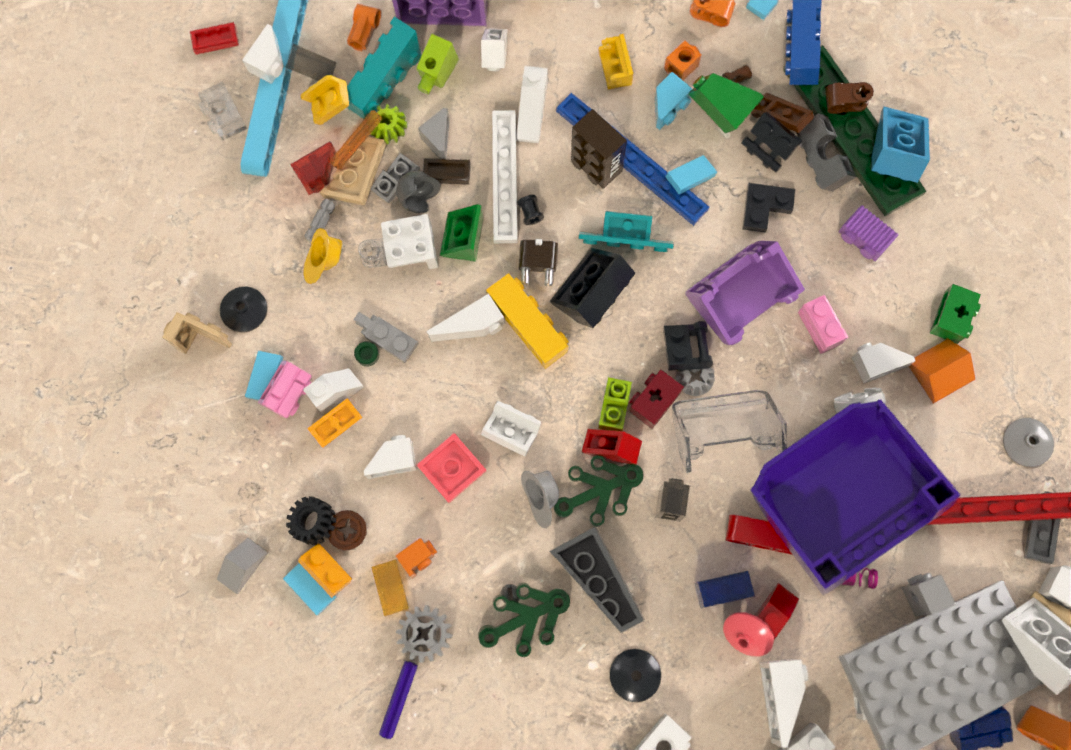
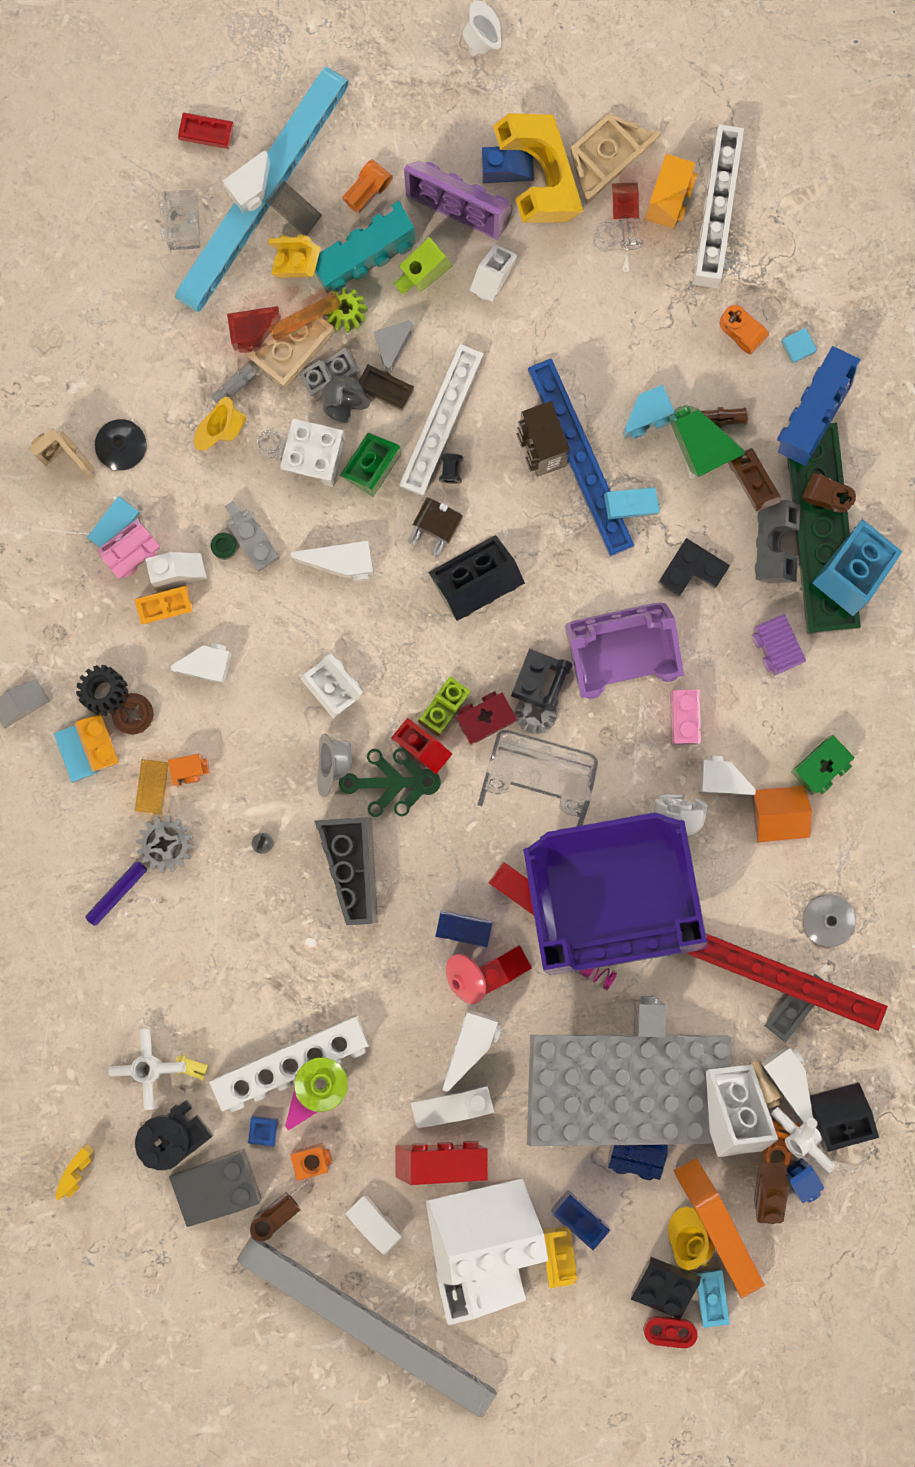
camera: 20 degrees right, 10 degrees up
(451, 468) = (258, 698): coral plate -> none
(527, 321) = (395, 583): yellow brick -> none
(528, 617) = (268, 870): dark green plant -> none
(532, 104) = (503, 354): white slope -> none
(616, 62) = (612, 345): yellow hinge -> none
(621, 673) = (359, 965): black dish -> none
(626, 229) = (538, 534): teal bracket -> none
(672, 500) = (453, 823): clear smoke brick -> none
(683, 69) = (675, 383): orange brick -> none
(776, 137) = (734, 502): black plate -> none

